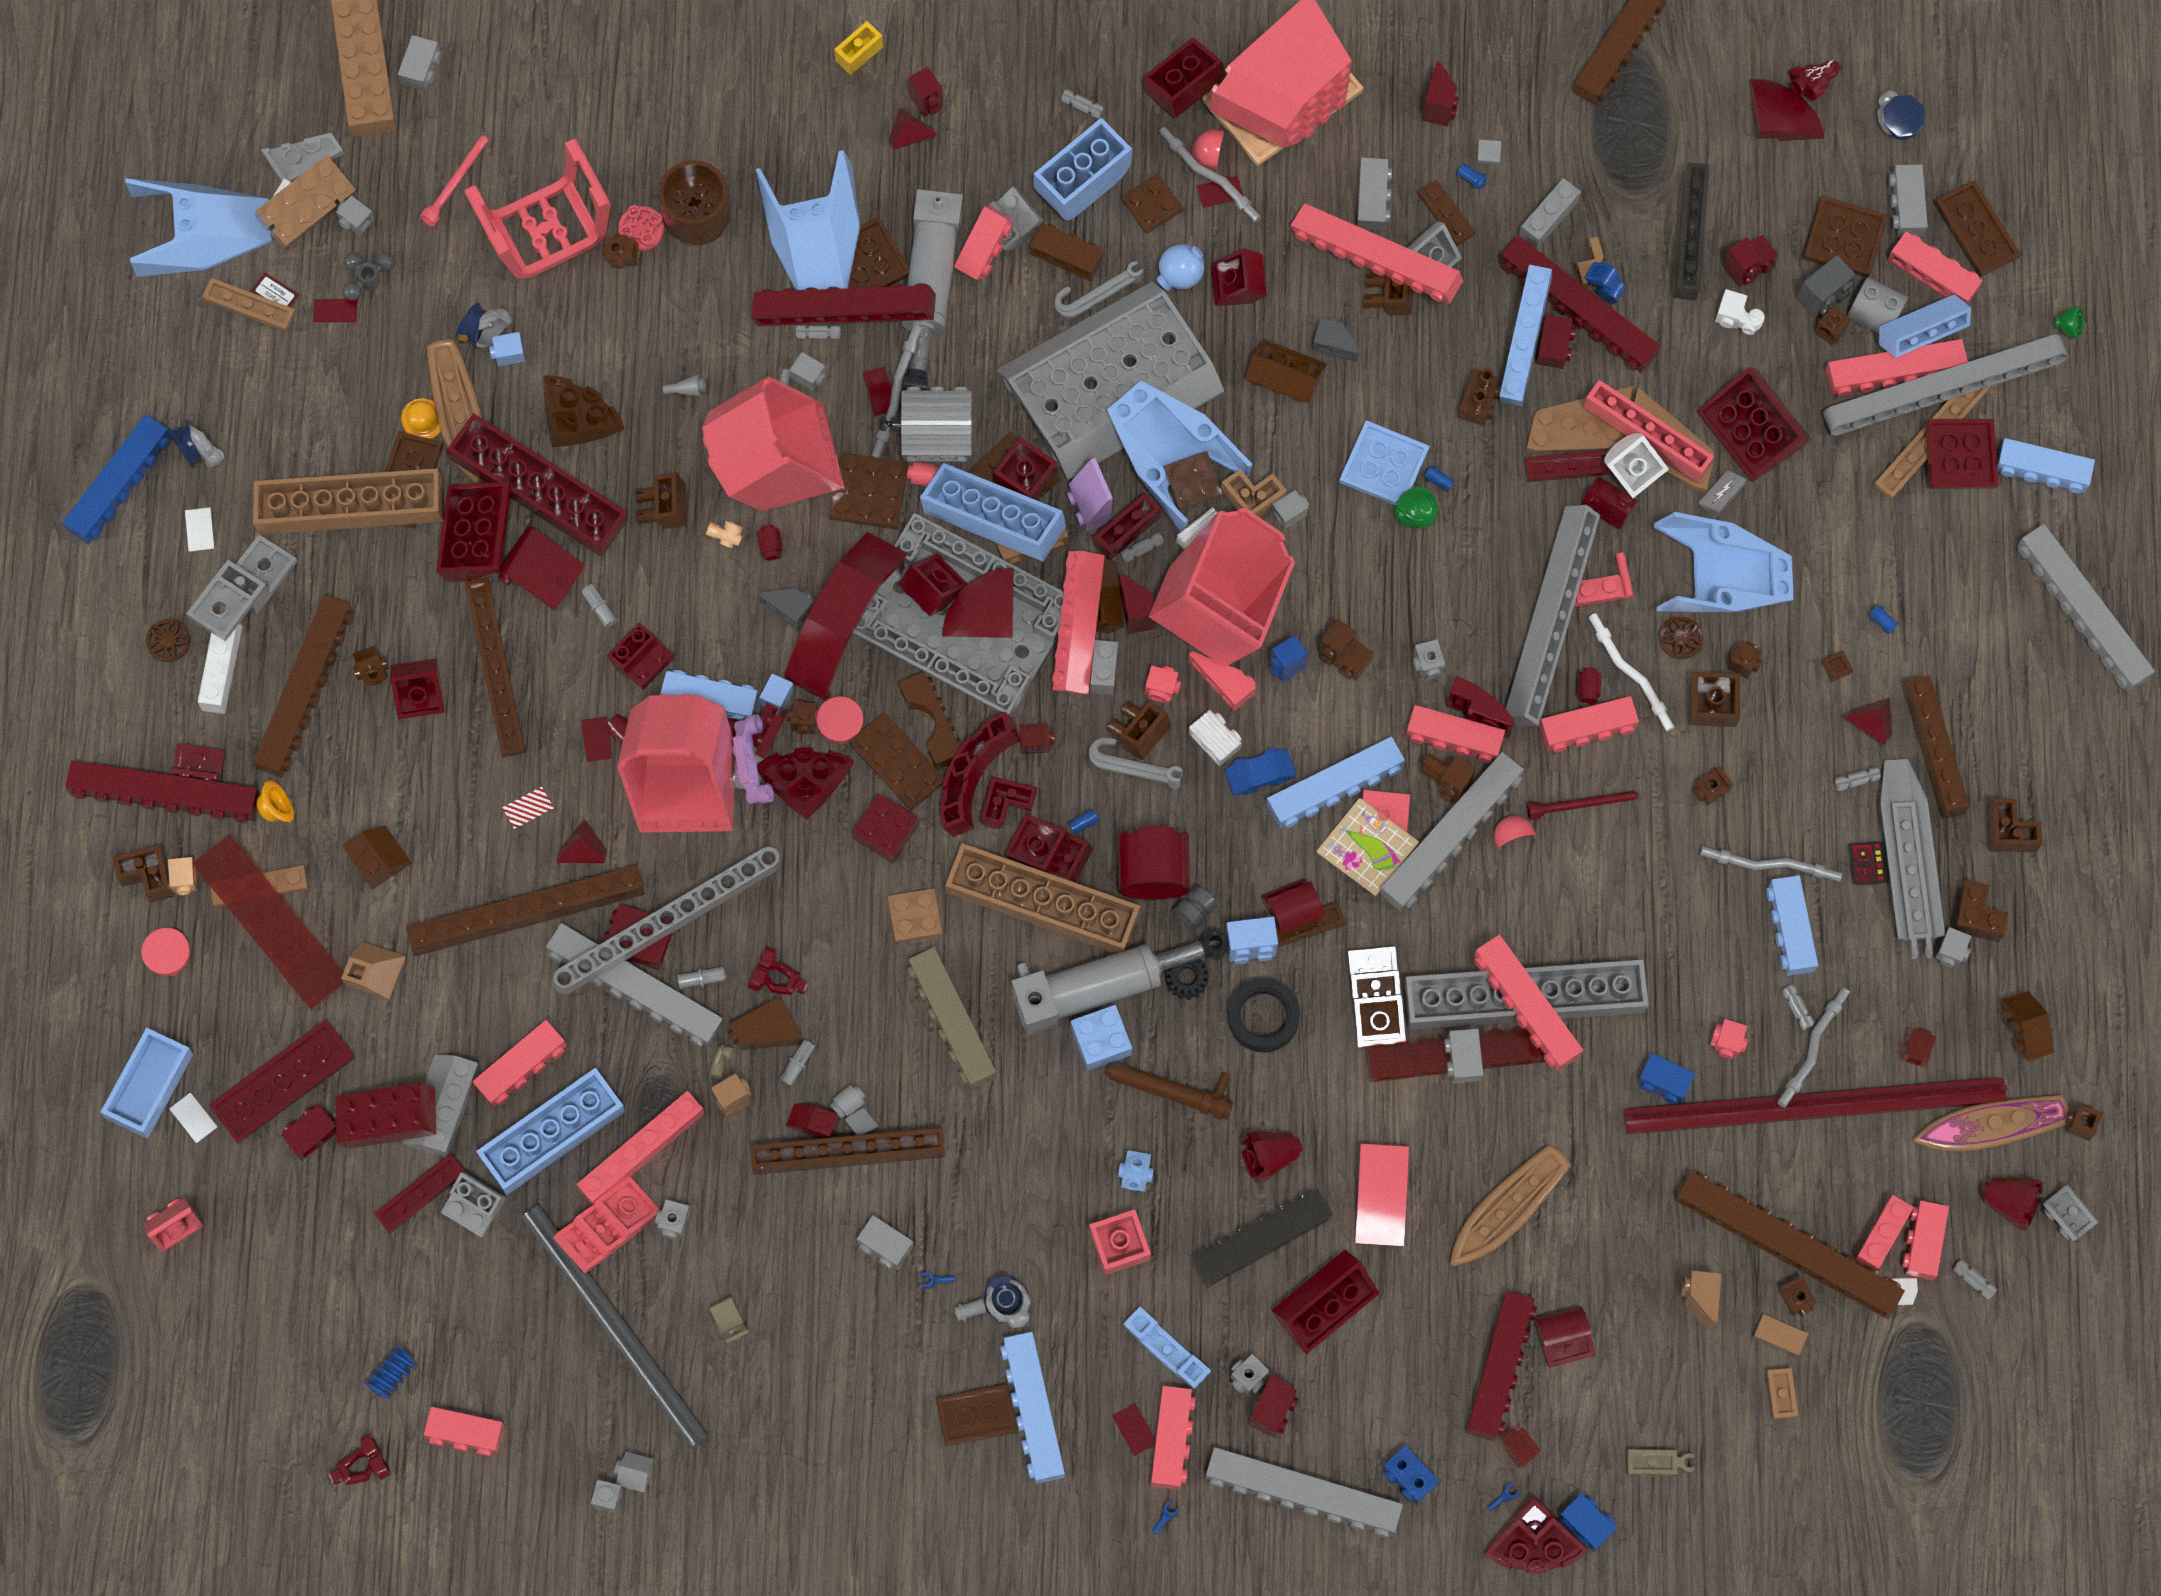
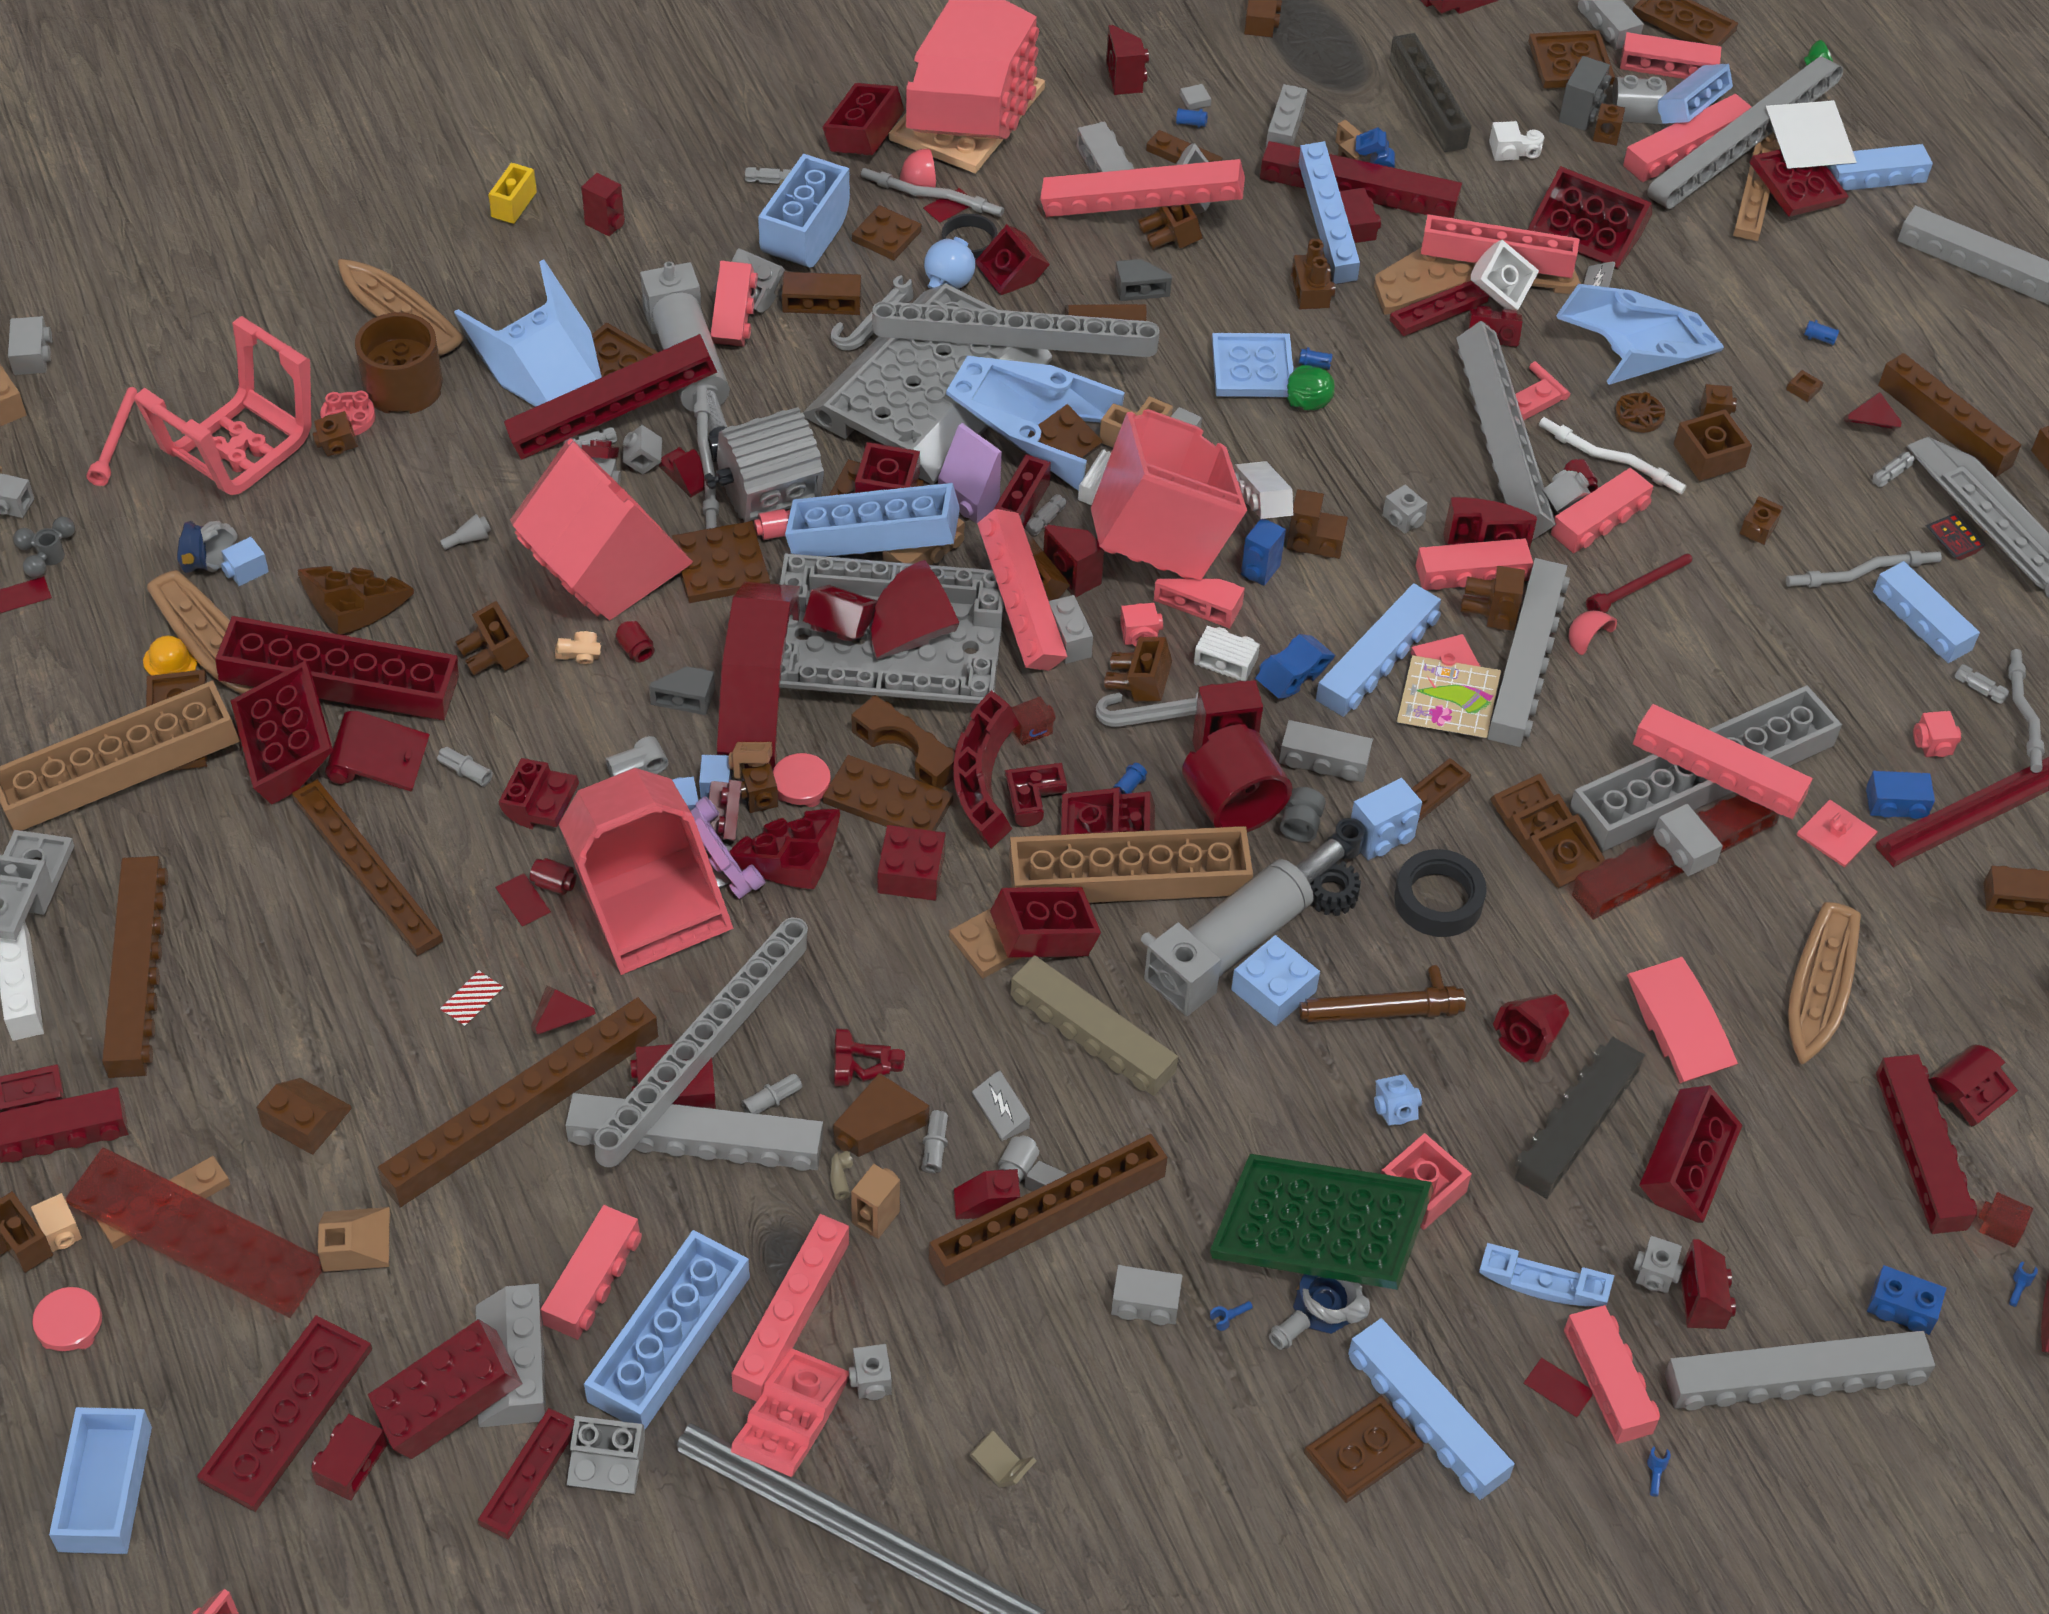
camera: 25 degrees left, 20 degrees down
(193, 1117) = (180, 1505): white sticker -> none
(274, 803) = (146, 1101): light orange hat -> none
(370, 666) = (211, 914): reddish brown brick -> none
(417, 688) = (280, 919): dark red slope -> none
(722, 132) = (387, 294): none -> medium nougat piece
(733, 653) = (645, 756): none -> light grey piece
(804, 691) = (752, 753): none -> medium nougat bracket
(817, 350) = (601, 449): none -> dark red plate
(851, 360) = (642, 449): none -> light grey brick
(856, 1054) = (1001, 1106): none -> light grey slope
(909, 130) = (599, 242): dark red slope -> none
(954, 923) = (1045, 922): none -> dark red brick
(1027, 1244) = (1322, 1221): none -> dark green plate
(1173, 807) = (1226, 706): none -> dark red brick
(1199, 376) = (1015, 329): none -> light grey beam
(1217, 216) = (970, 220): none -> black tyre
(1243, 858) = (1325, 751): none -> light grey brick
(1293, 905) = (1416, 764): dark red brick -> none
(1314, 603) = (1264, 490): none -> white brick
(1565, 697) = (1566, 489): none -> light grey brick
(1600, 1088) = (1837, 833): none -> coral piece
(1749, 259) = (1497, 97): dark red brick -> none
(1995, 414) = (1811, 134): none -> white sticker

